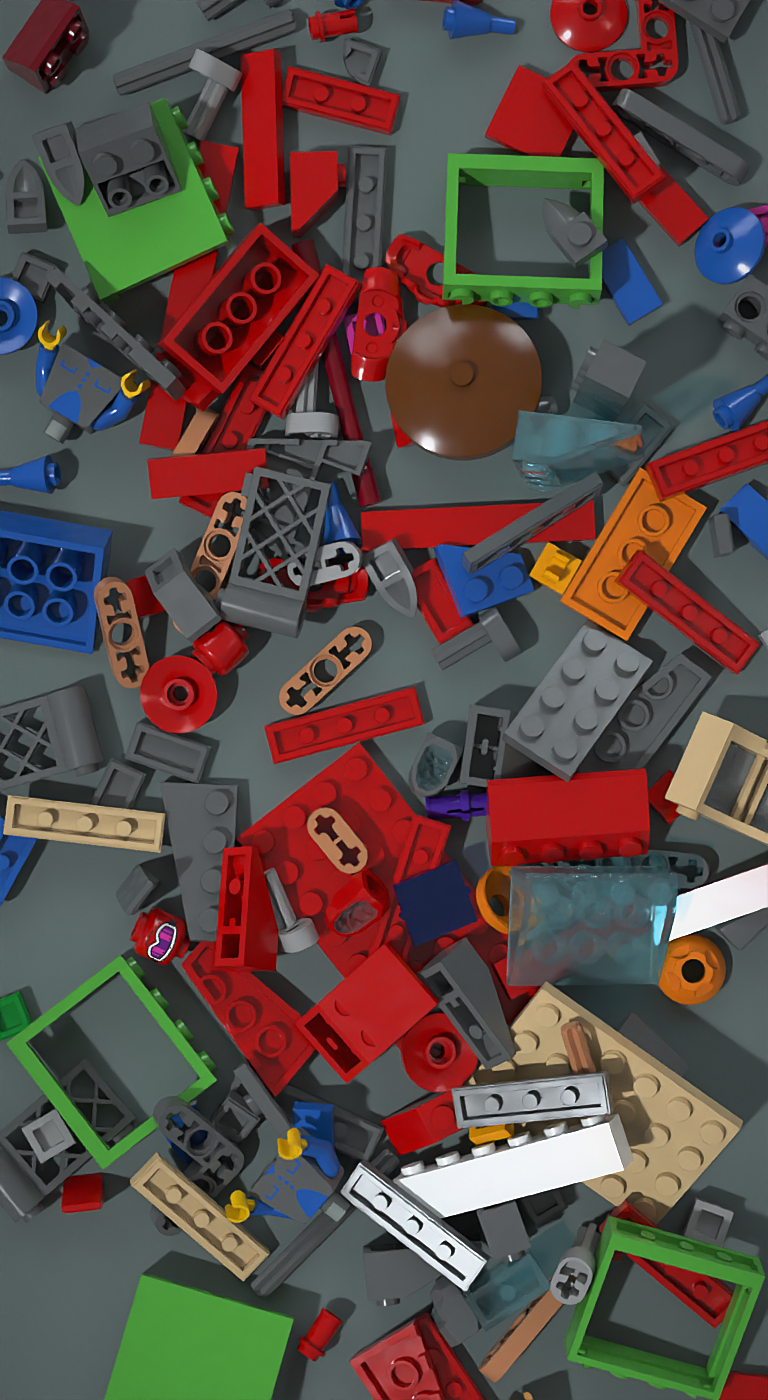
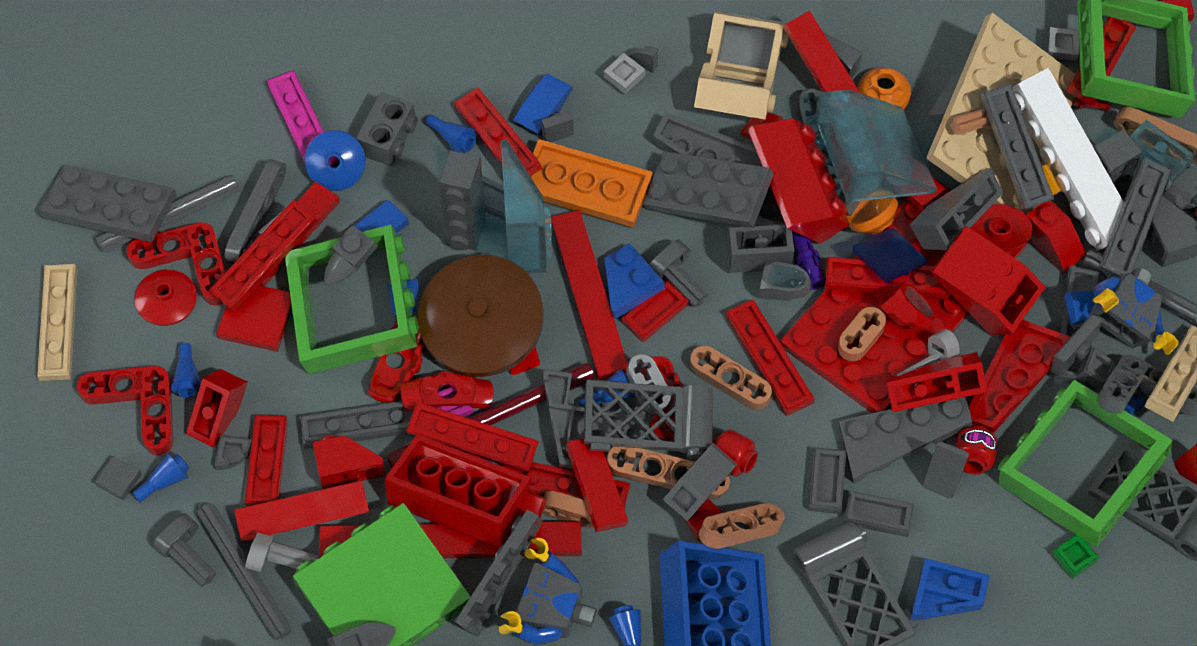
camera: 105 degrees left, 25 degrees down
(48, 1135) = (1159, 494): light grey plate -> none
(84, 823) = (904, 524): tan tile -> none
(127, 159) = (350, 587): dark grey slope -> none
(161, 702) = (784, 463): red dish -> none
(304, 421) = (538, 426): light grey piece -> none
(332, 24) = (207, 482): red pin -> none
(392, 576) = (645, 338): dark grey plate -> none
(419, 50) = (215, 406): none -> red slope
(532, 523) = (588, 251): dark grey tile -> none
(555, 568) = (608, 235): light orange tile -> none
(578, 1262) = (1123, 106): light grey piece -> none
(687, 612) = (620, 137): red tile -> none

